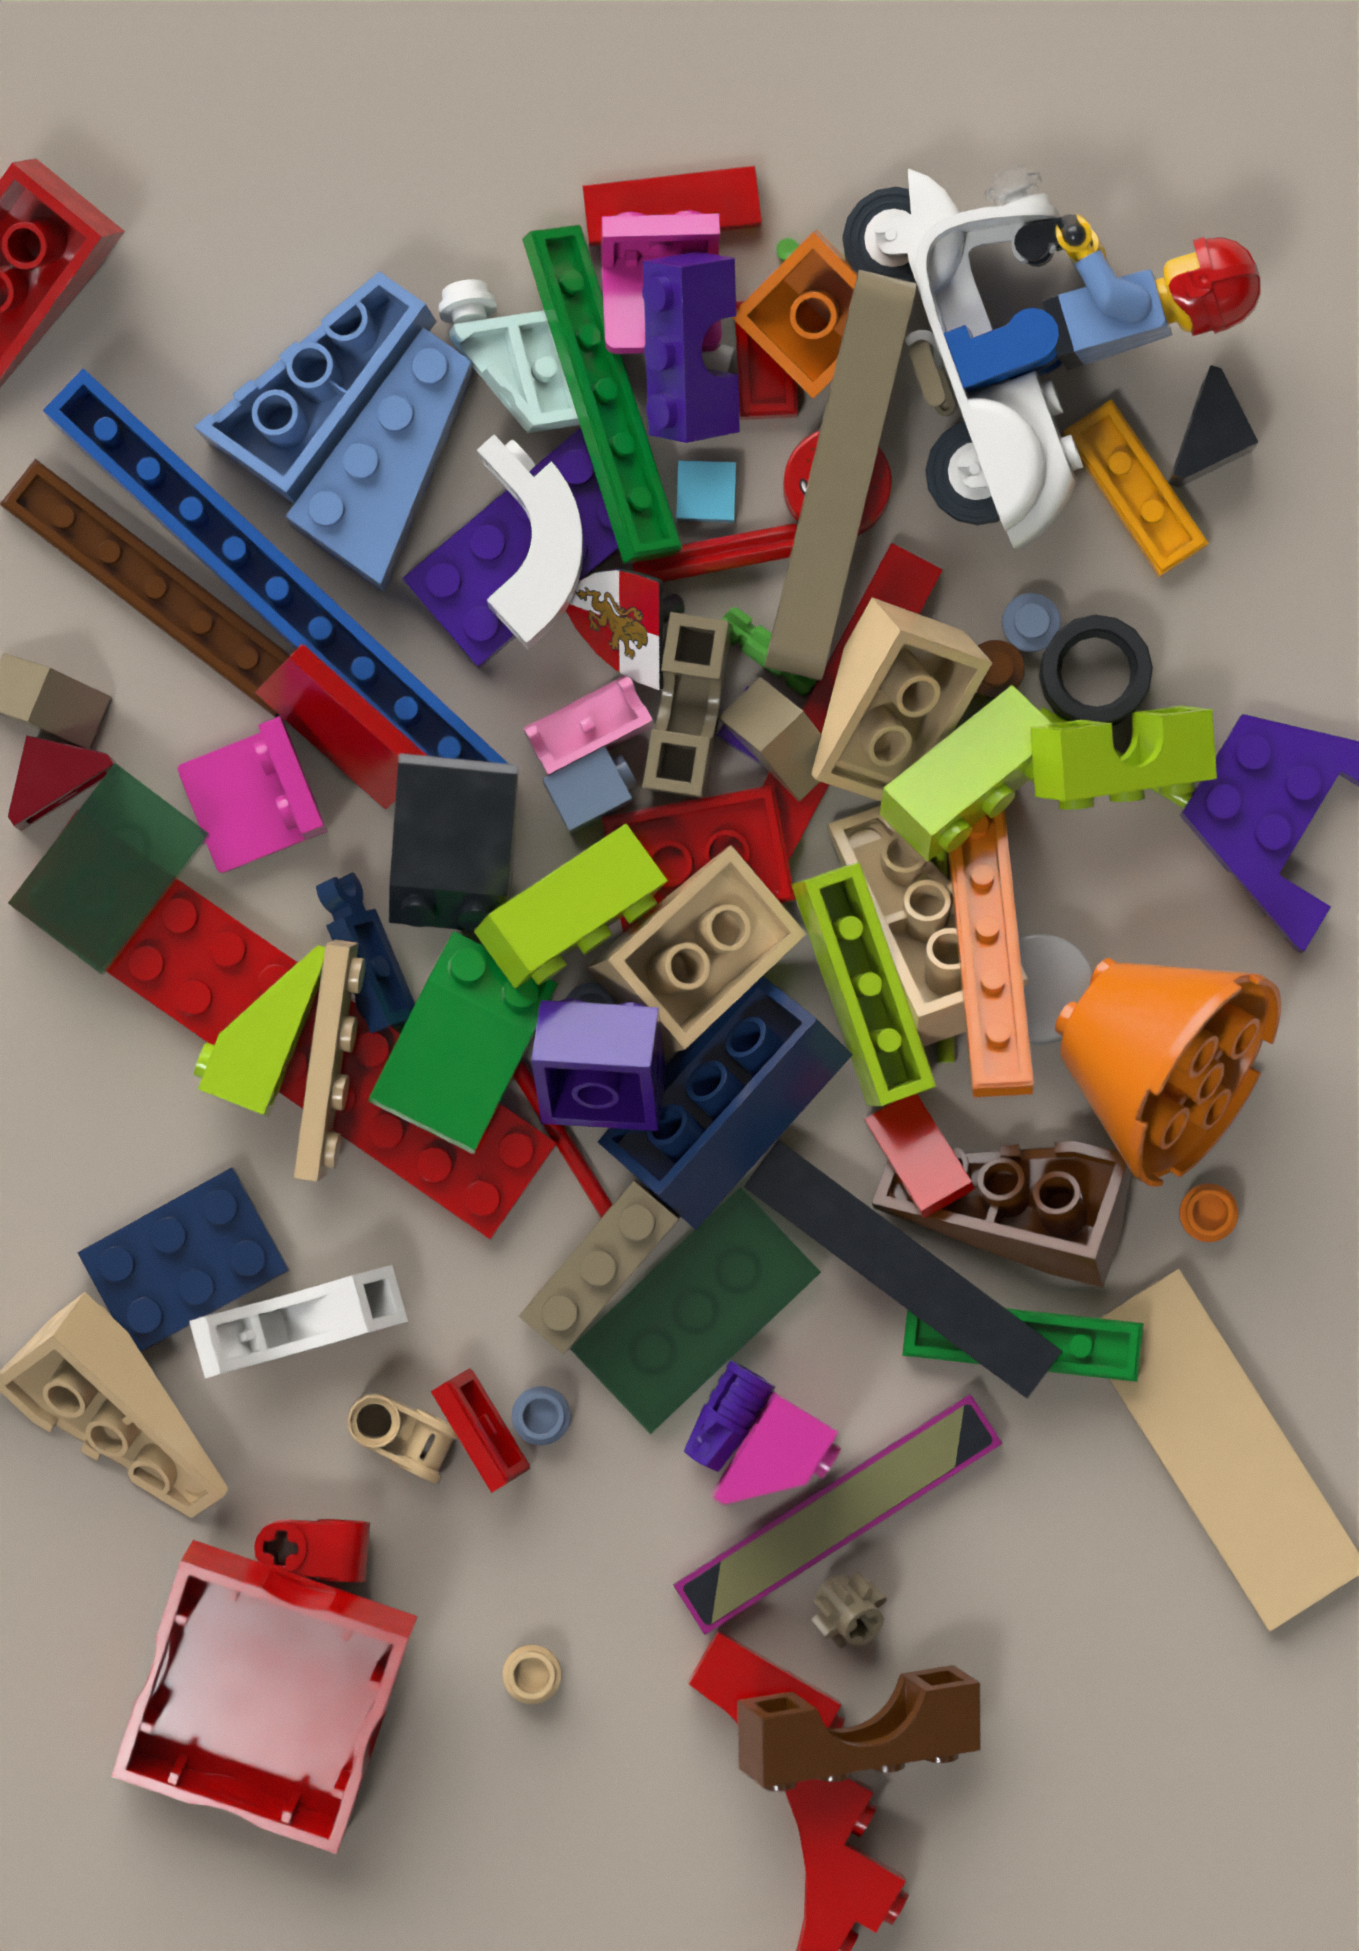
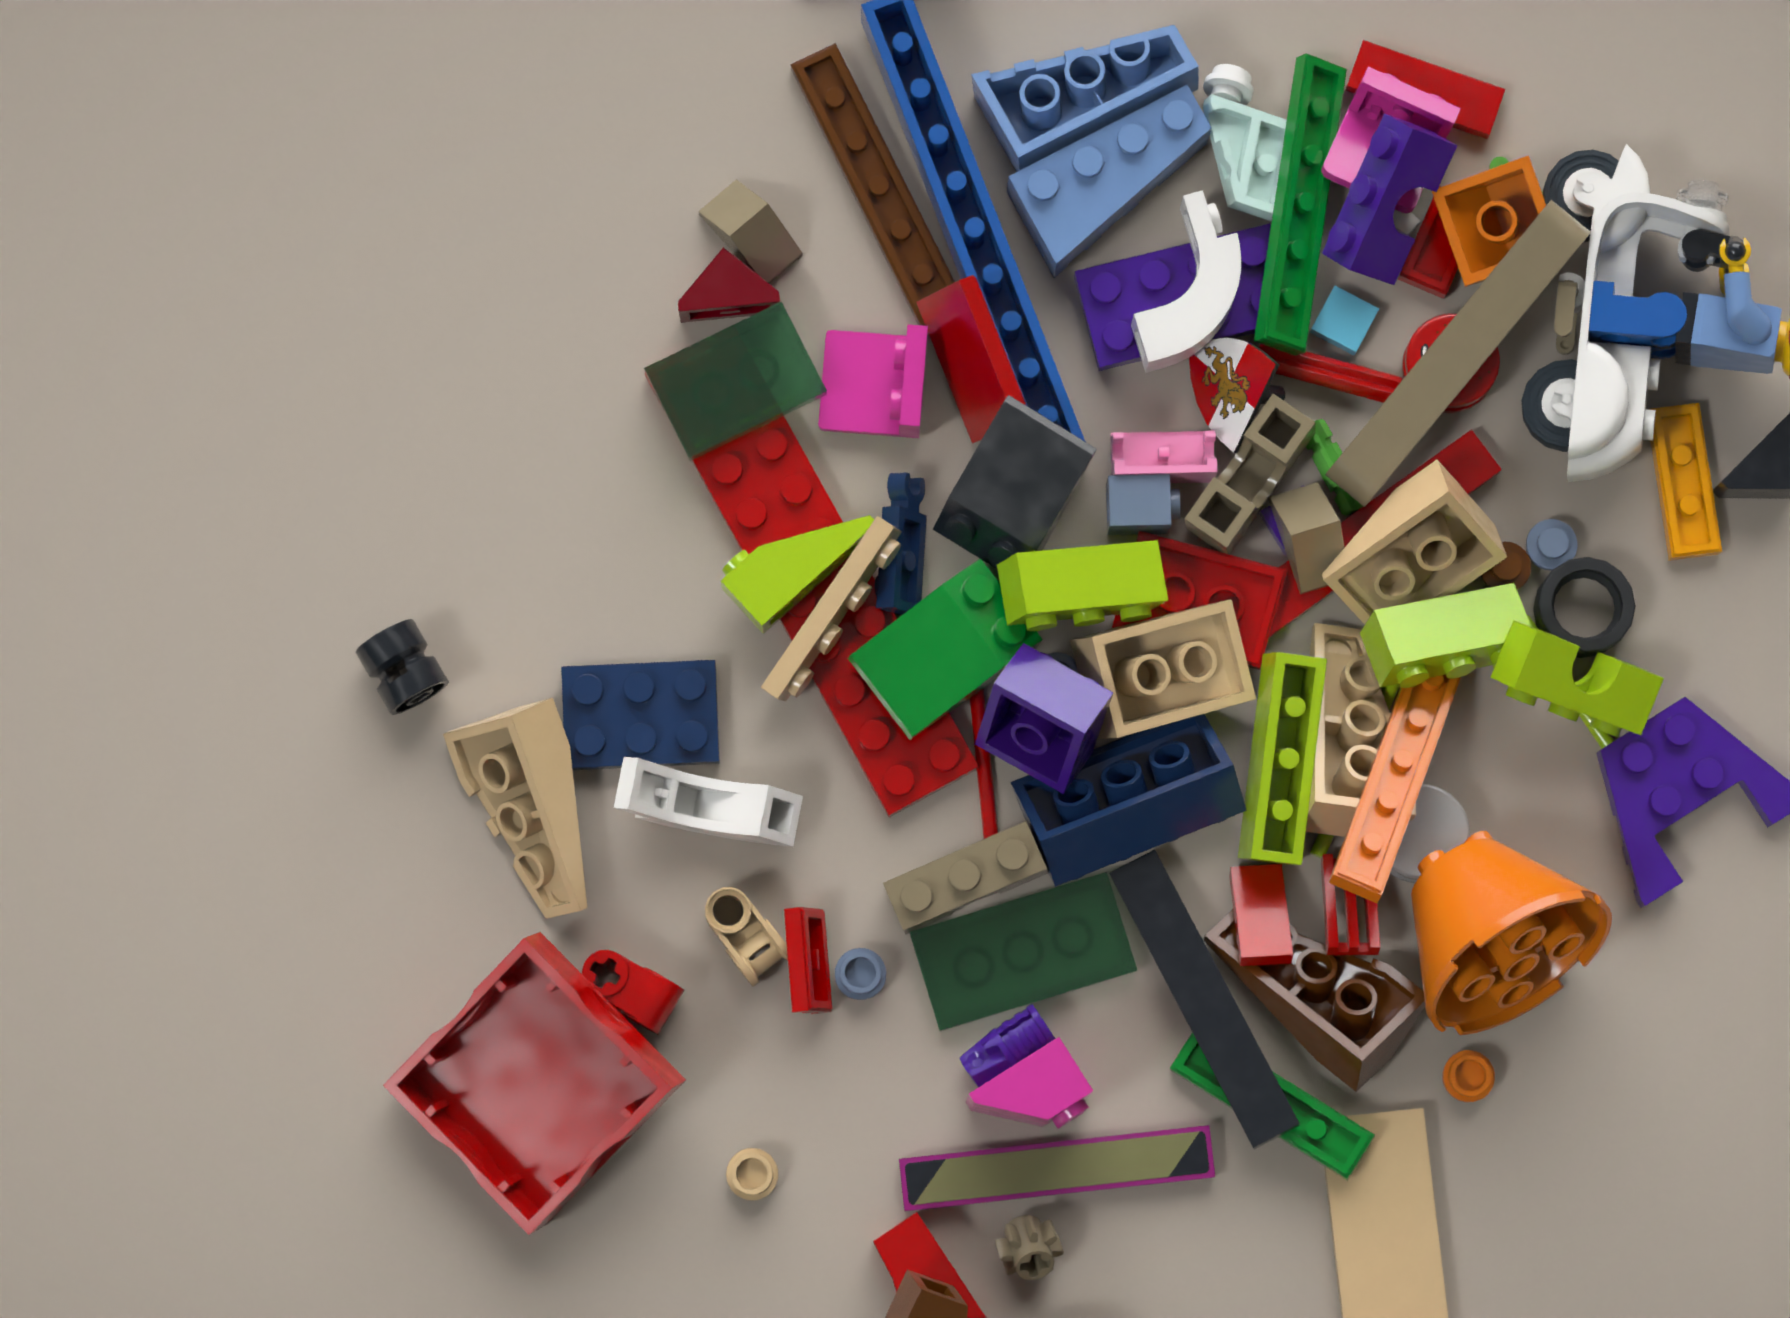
camera: 25 degrees right, 5 degrees down
(1028, 1140) = (1352, 946): none -> red tile

